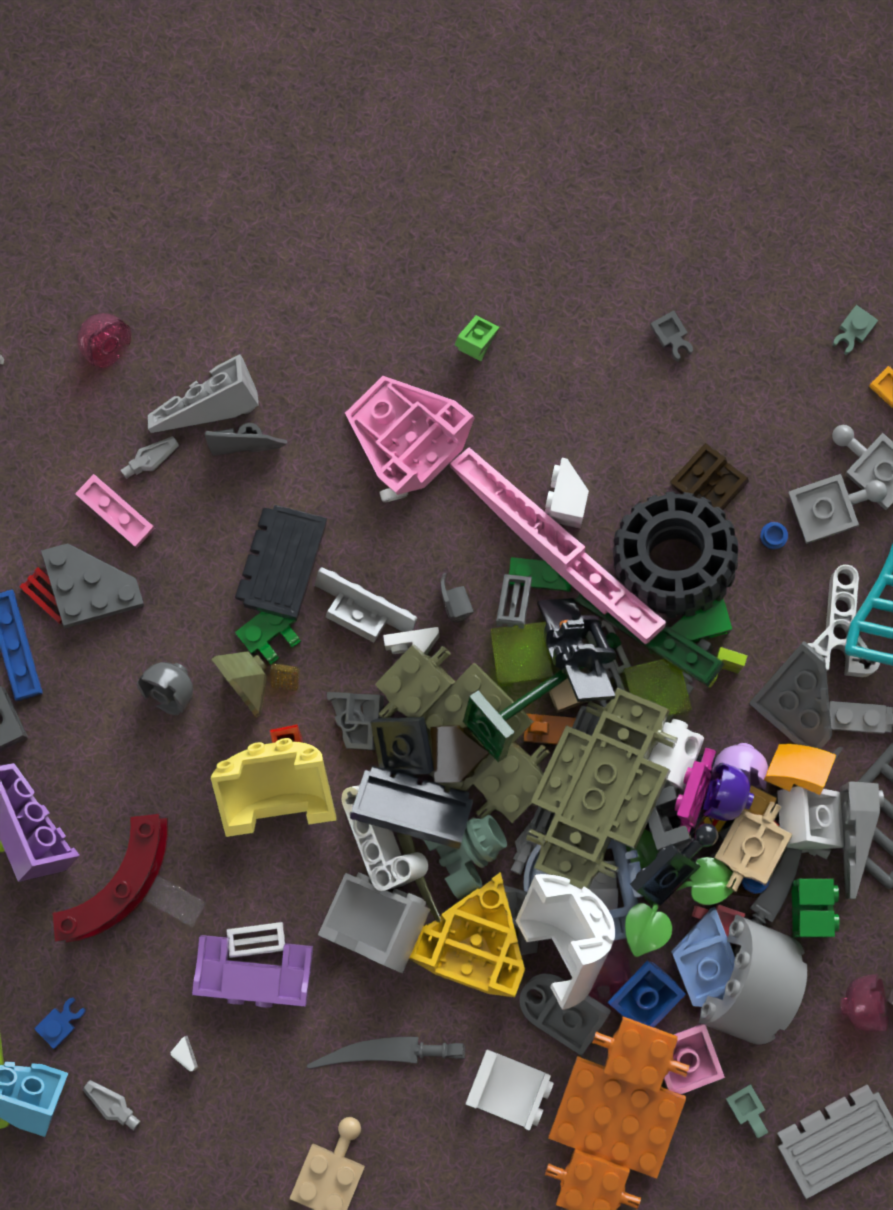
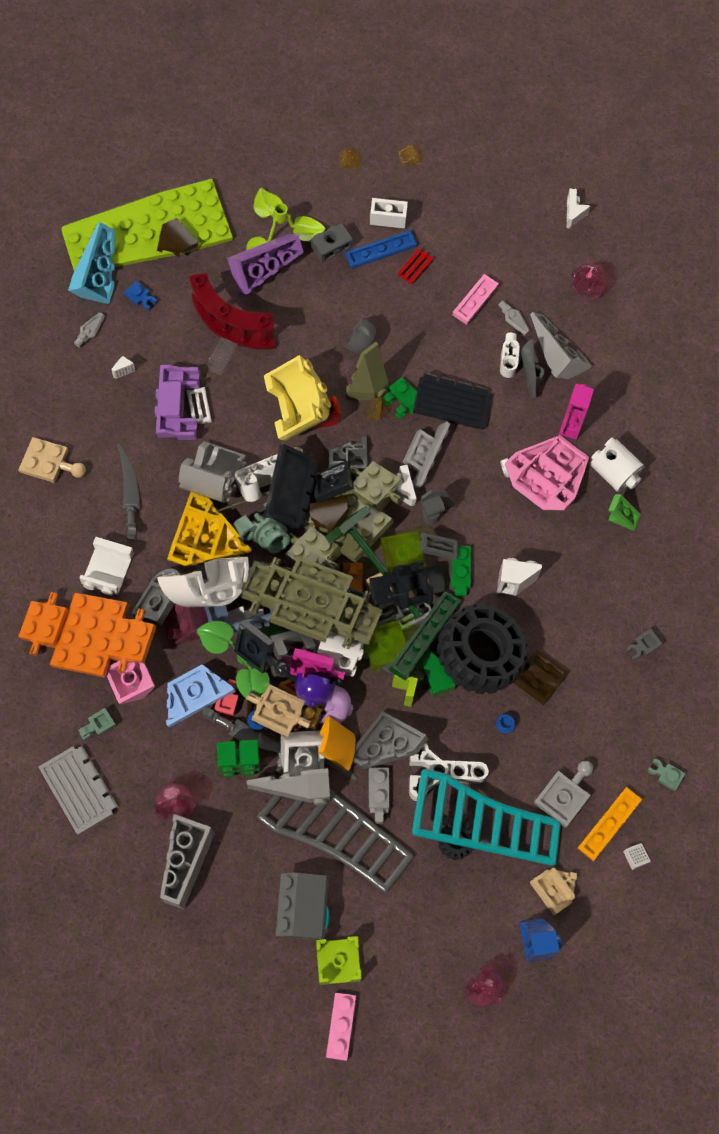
camera: 75 degrees right, 10 degrees down
(87, 586) = (423, 286): dark grey plate -> none
(193, 466) = (506, 359): none -> white piece
(328, 381) = (576, 411): none -> dark pink brick
(414, 328) = (620, 471): none -> white cylinder
(557, 547) = (479, 572): bright pink slope -> none
(647, 995) = (172, 647): blue slope -> none
(762, 987) = (185, 721): light grey cylinder -> none
(827, 508) = (531, 758): light grey plate -> none

